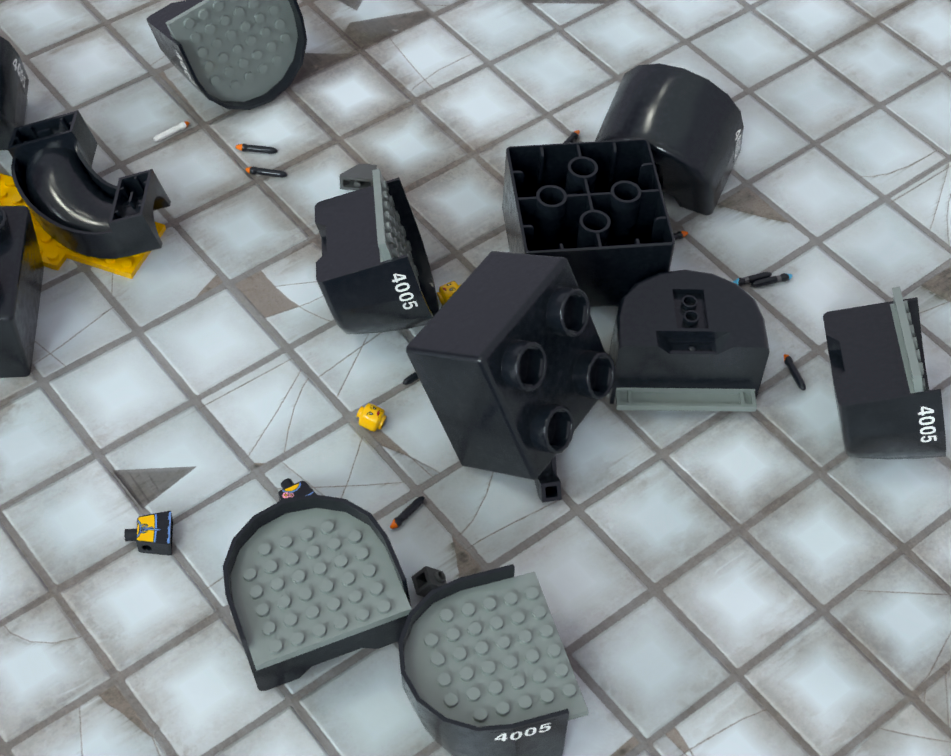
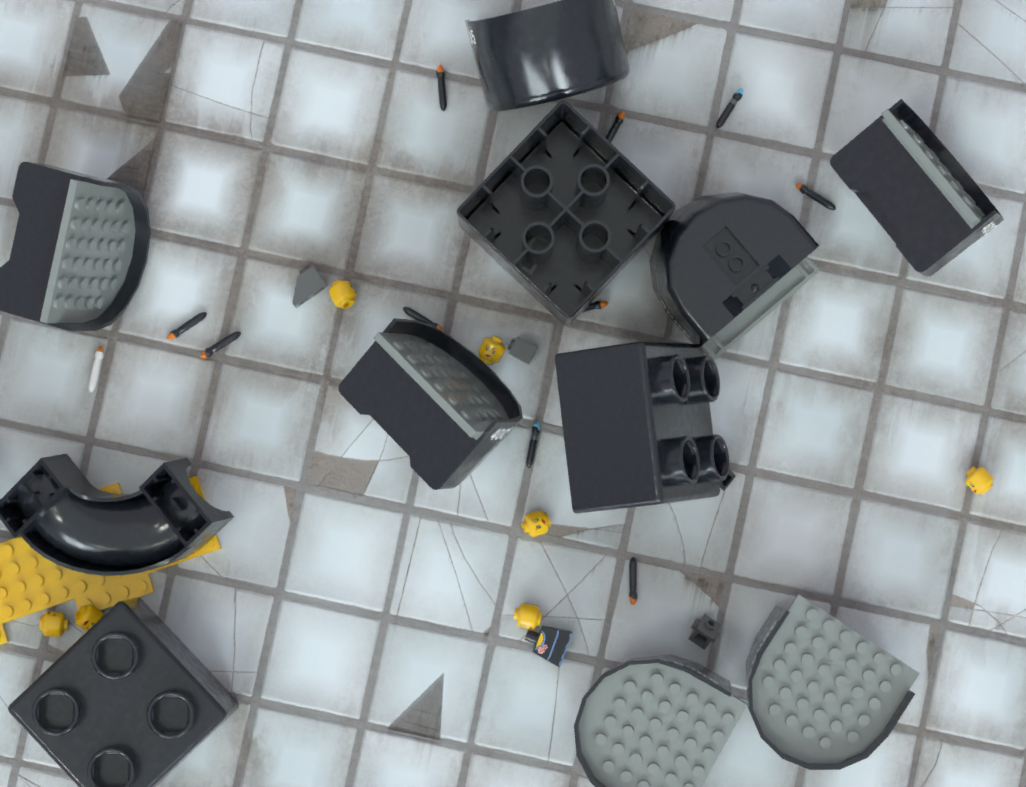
camera: 35 degrees left, 35 degrees up
(153, 533) = (473, 758): black torso -> none
(300, 469) = (528, 616): none -> yellow head
(749, 279) = (712, 120): black piece -> none
(773, 649) = (979, 480): none -> yellow head

